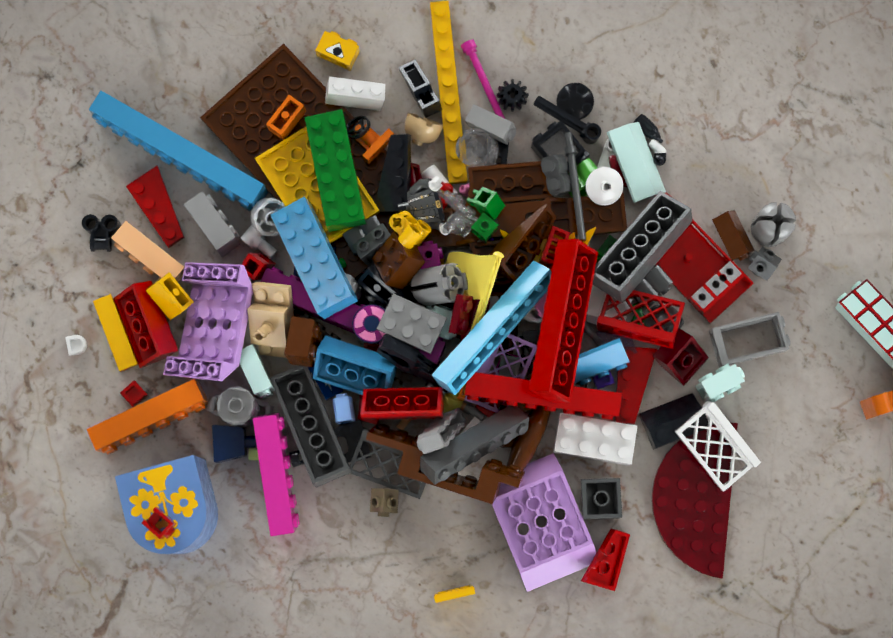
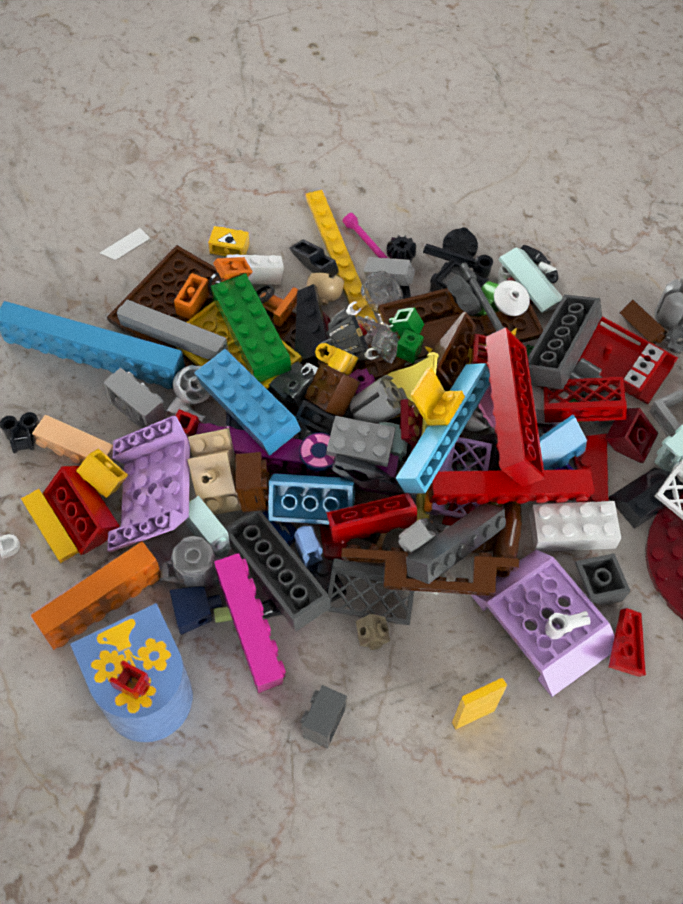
camera: 15 degrees left, 20 degrees down
(133, 393) = (74, 578): red tile -> none
(154, 201) = (72, 398): red wing -> none
(233, 27) = (126, 244): none -> white sticker
(259, 156) = (171, 330): none -> light grey brick
(323, 570) = (324, 716): none -> dark grey brick
(327, 102) = (228, 269): none -> orange piece
(488, 303) = (433, 401): none -> yellow bracket
(554, 537) = (566, 623): none -> white pin

